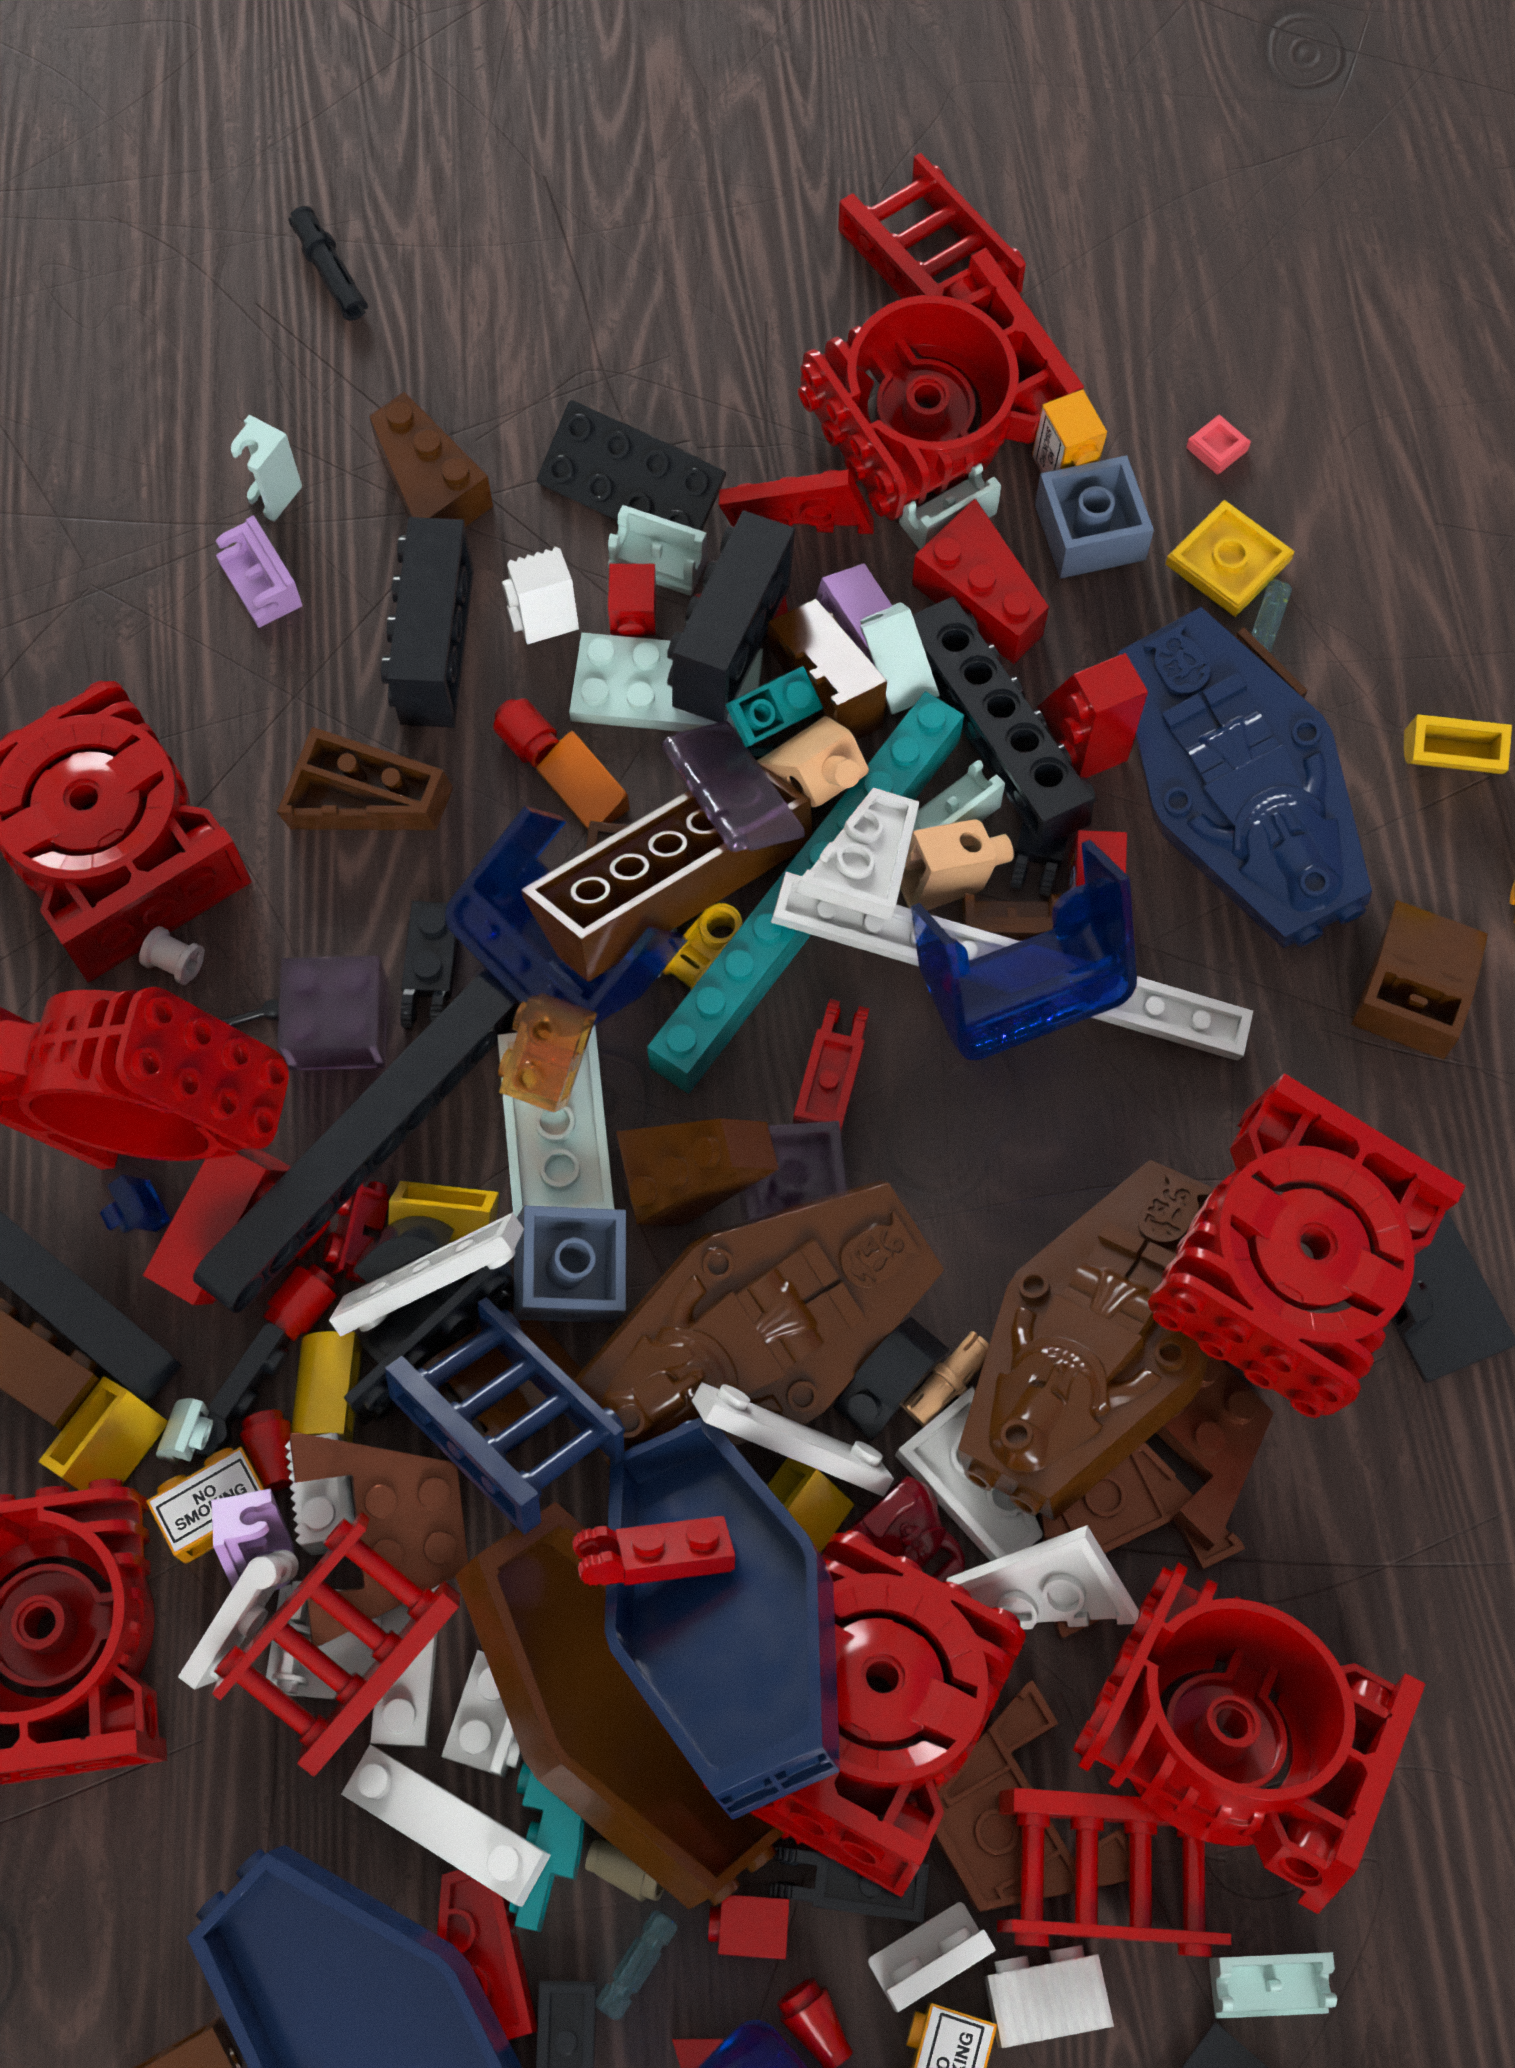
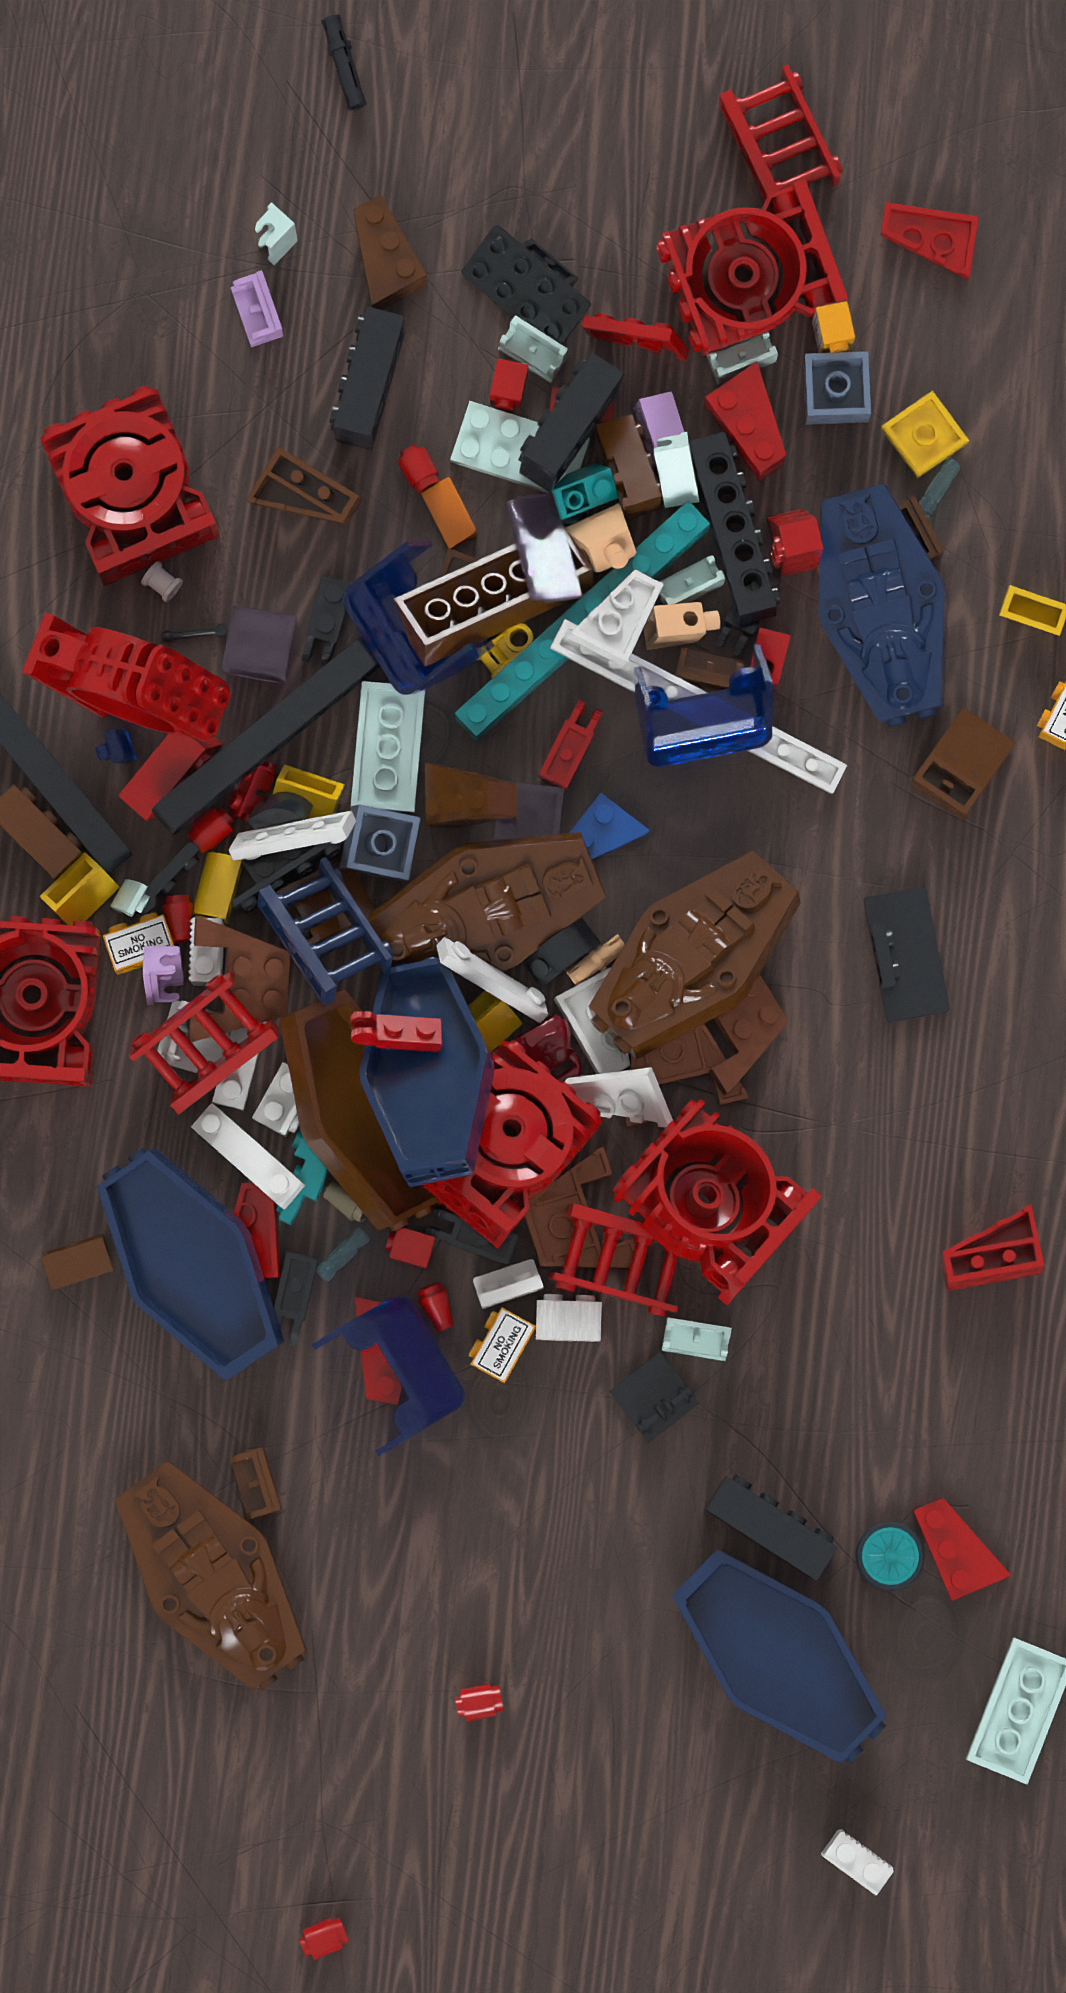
camera: 10 degrees right, 15 degrees up
(239, 1615) = (149, 1014): white plate -> none
(540, 596) = (446, 374): white brick -> none
(546, 1051) = (390, 705): clear orange brick -> none
(920, 1171) = (607, 827): none -> blue wing
(1166, 319) = (933, 234): none -> red wing
(1218, 444) = (943, 341): coral tile -> none
(1346, 1197) = (862, 889): red brick -> none

